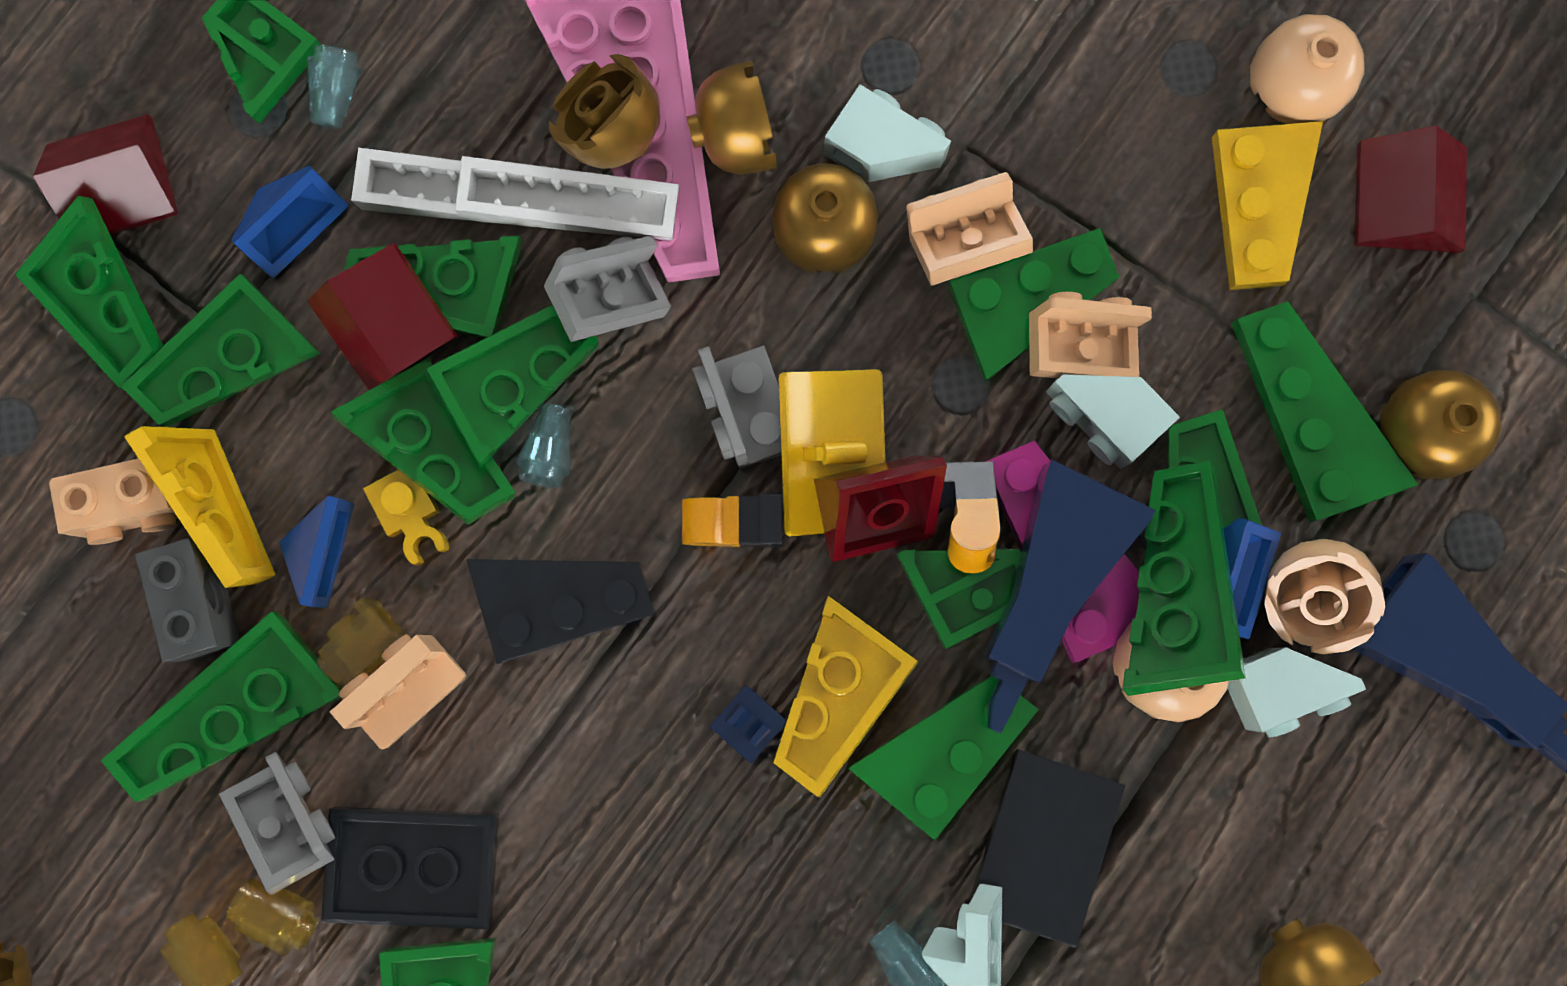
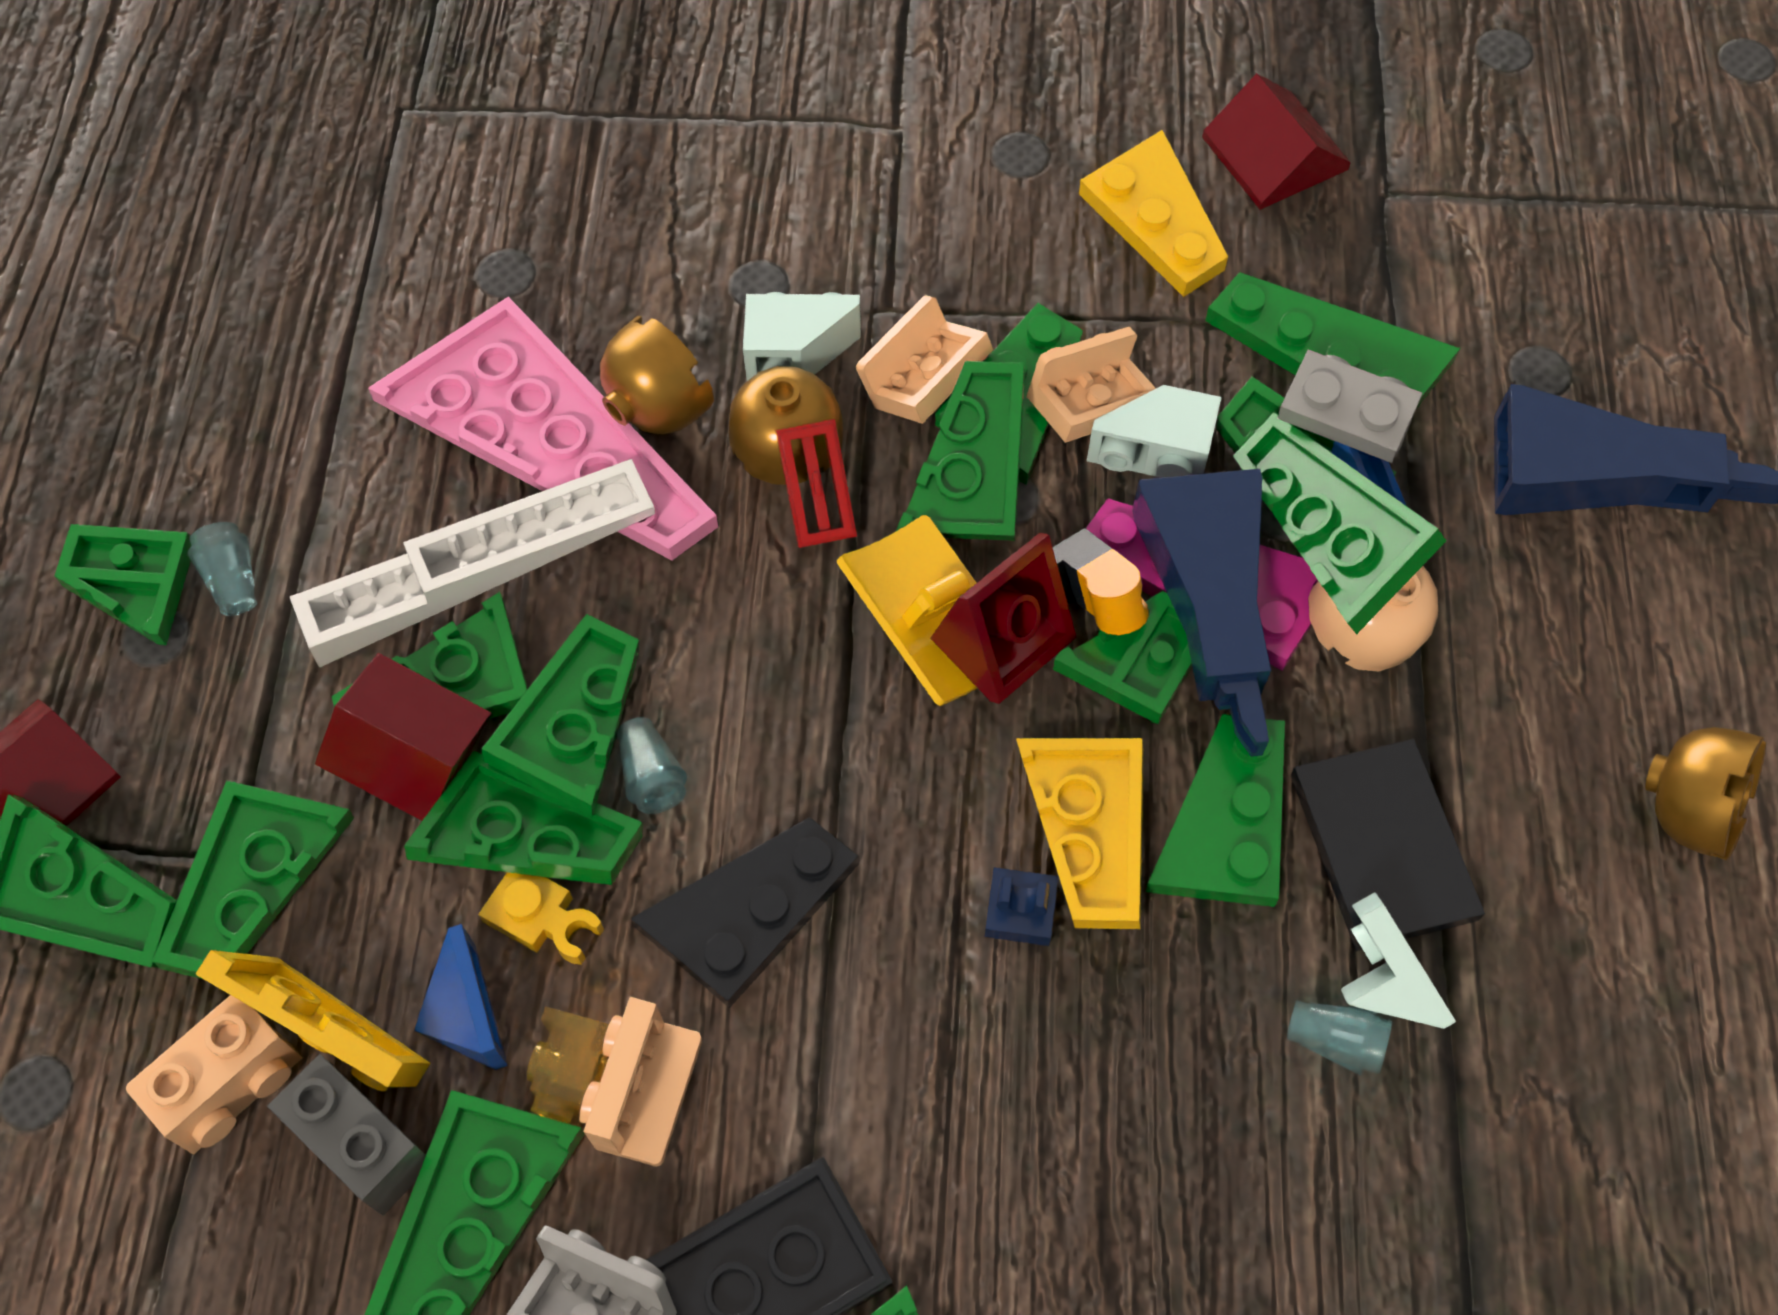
camera: 35 degrees left, 20 degrees down
(286, 219) = (247, 709): blue slope -> none
(606, 288) = (616, 584): light grey bracket -> none
(607, 114) = (529, 428): pearl gold cylinder -> none
(733, 521) = (881, 723): leg -> none
(747, 402) = (817, 618): light grey bracket -> none
(823, 249) = (806, 433): none -> red tile
(949, 346) = (975, 460): none -> green wing
(1269, 501) = (1350, 405): none -> light grey bracket
(1287, 686) = (1481, 564): light aqua slope -> none
(1307, 69) = (1119, 98): light nougat cylinder -> none
(1324, 596) = (1457, 465): light nougat cylinder -> none
(1441, 423) = (1441, 291): pearl gold cylinder -> none

